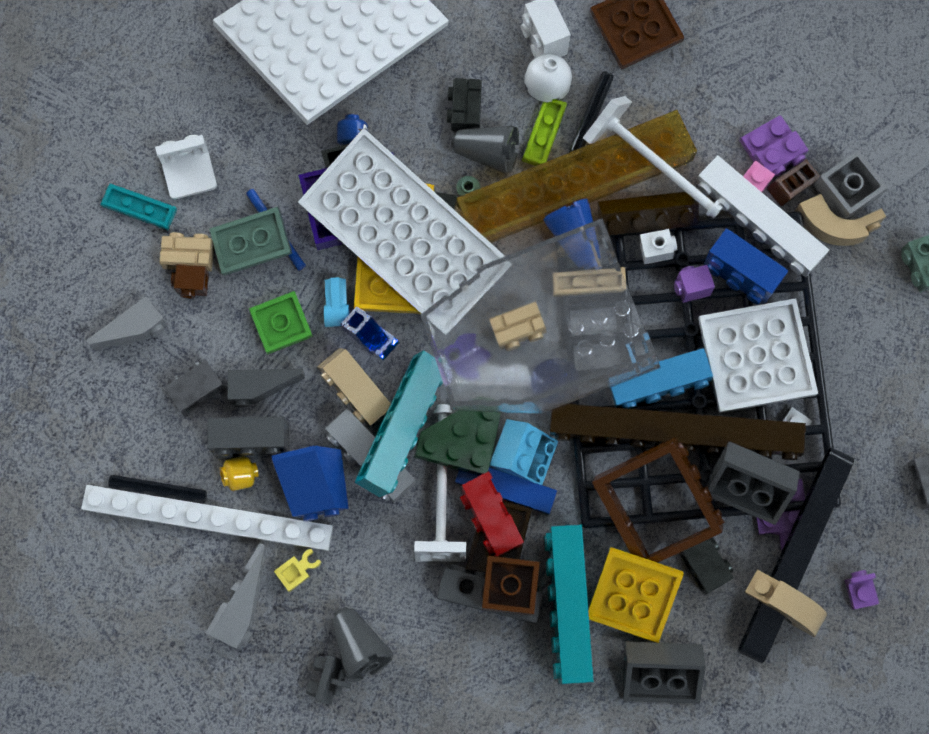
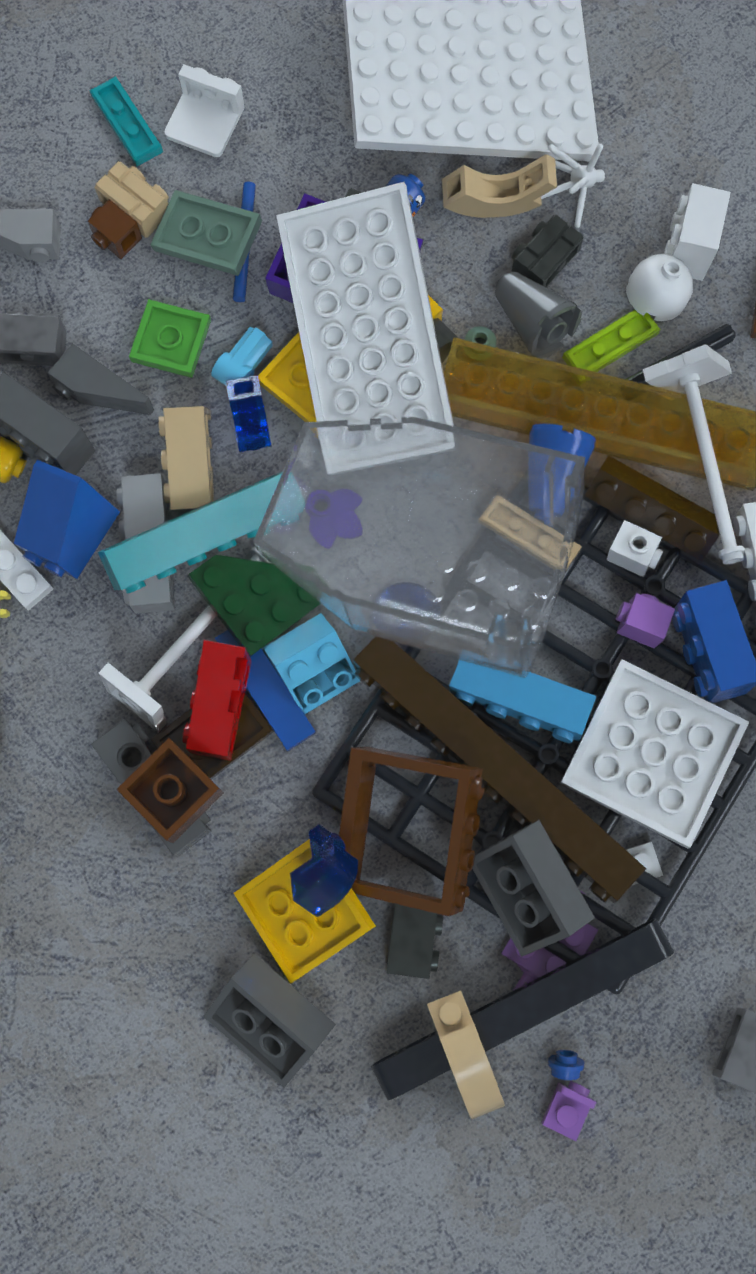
camera: 40 degrees right, 0 degrees up
(410, 88) = (499, 195): none -> tan arch
(449, 43) = (581, 177): none -> white plant
(518, 326) = (409, 521): tan brick -> none
(570, 604) = (221, 866): teal brick -> none
(637, 565) = (326, 876): none -> clear blue brick
(842, 566) = (566, 1065): none -> blue plate

